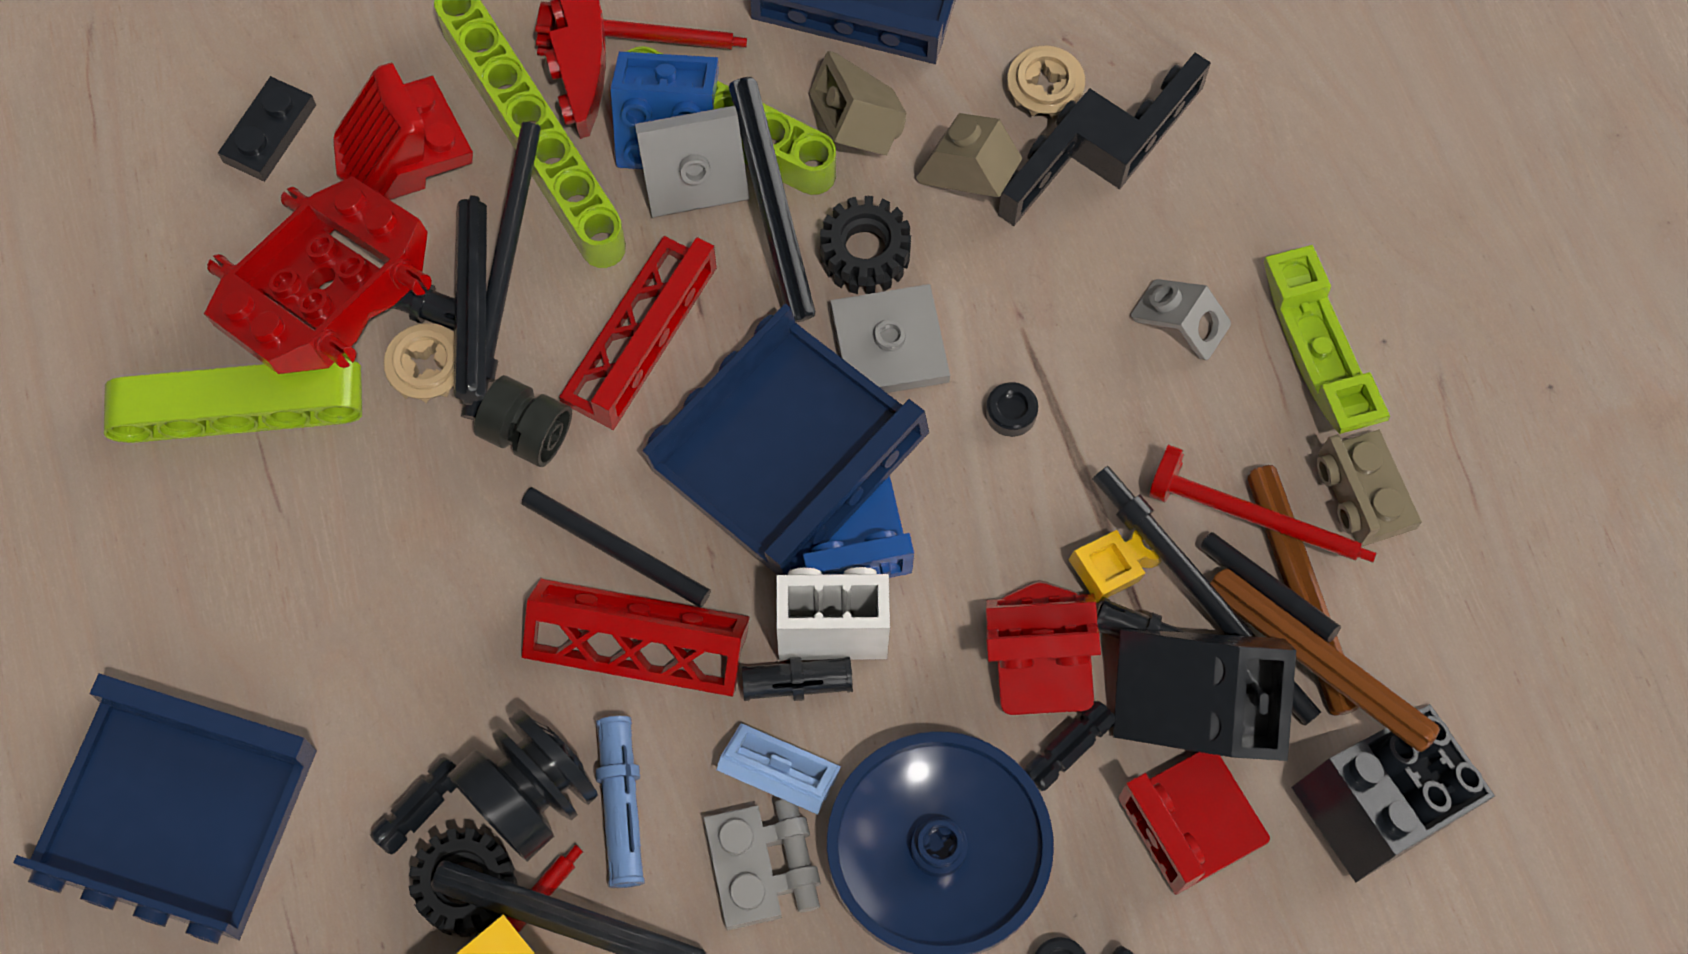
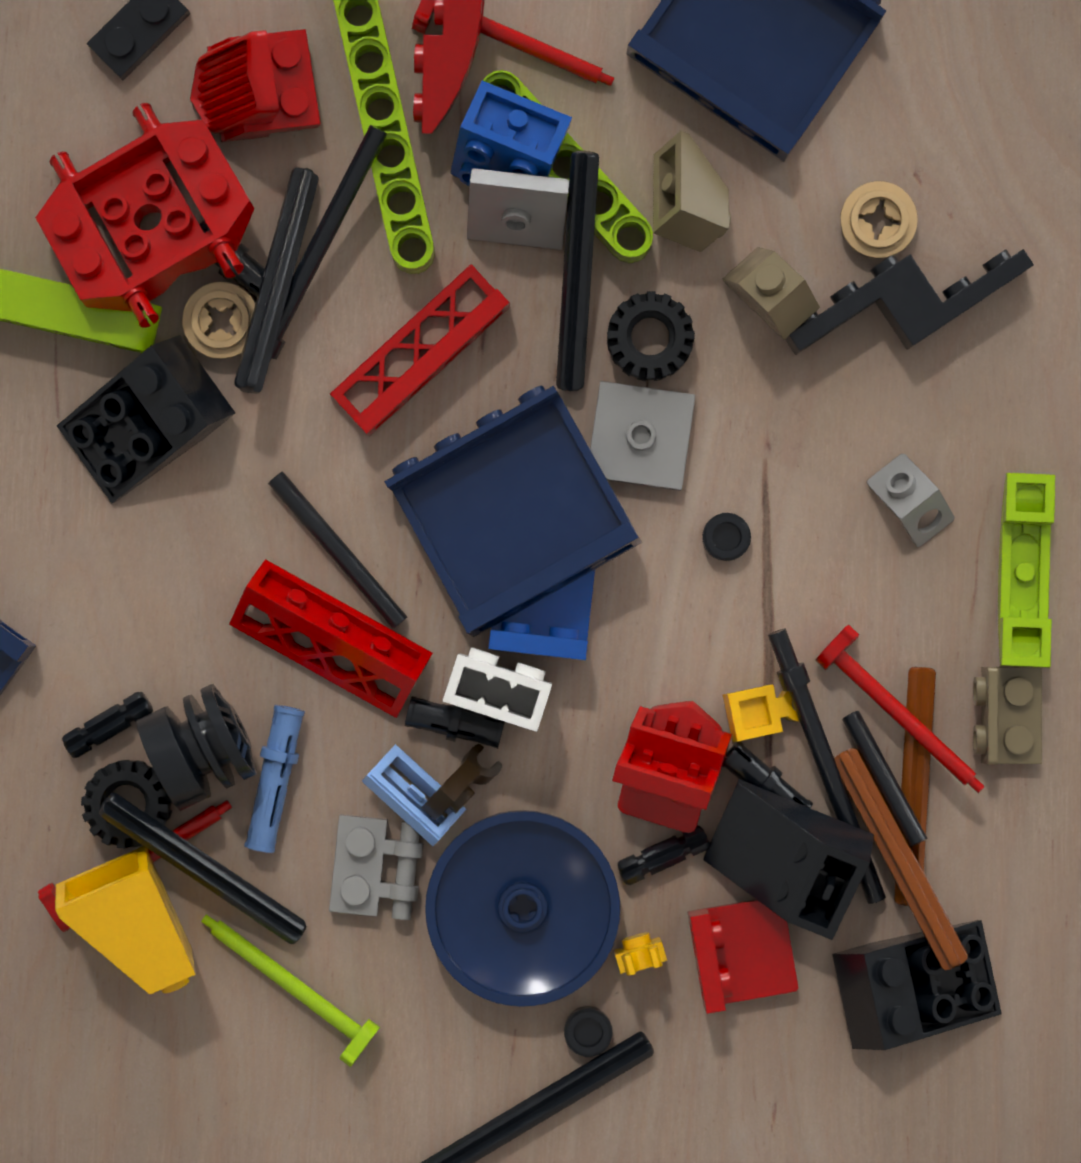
camera: 20 degrees right, 20 degrees up
(371, 476) = (145, 417): none -> black slope
(518, 419) = (290, 412): pearl dark grey wheel -> none
(825, 737) = (456, 790): none -> dark brown plate
(1084, 854) = (639, 953): none -> yellow plate

